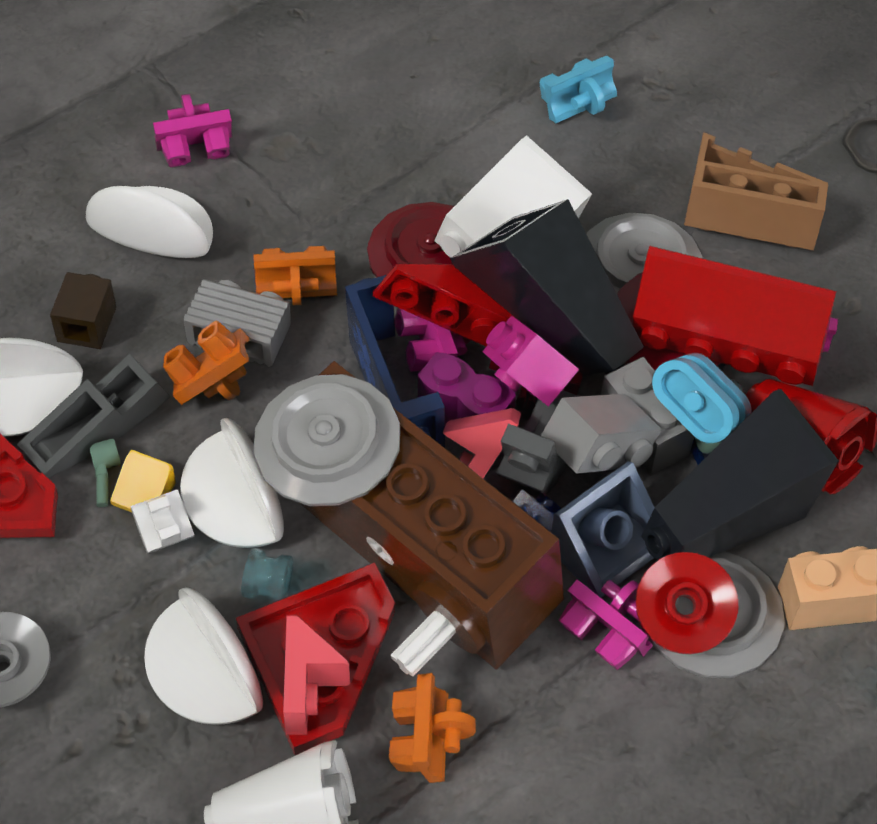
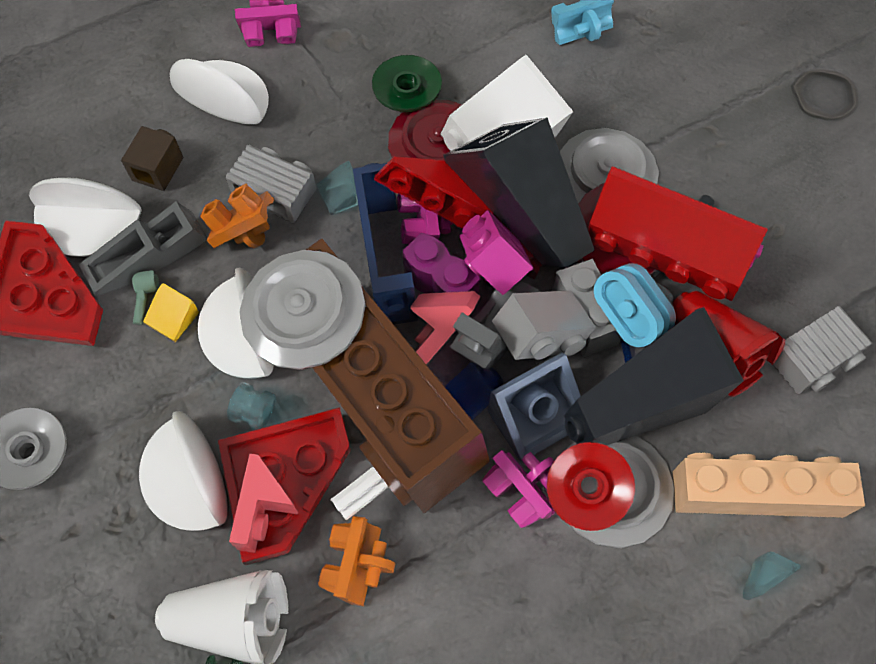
camera: 10 degrees right, 10 degrees up
(162, 521) = (178, 346): white tile -> none
(296, 273) = (324, 148): orange hips -> none
(322, 318) = (339, 189): none -> clear light blue slope
(380, 187) = (406, 83): none -> dark green dish
(754, 199) = (711, 130): medium nougat wedge -> none

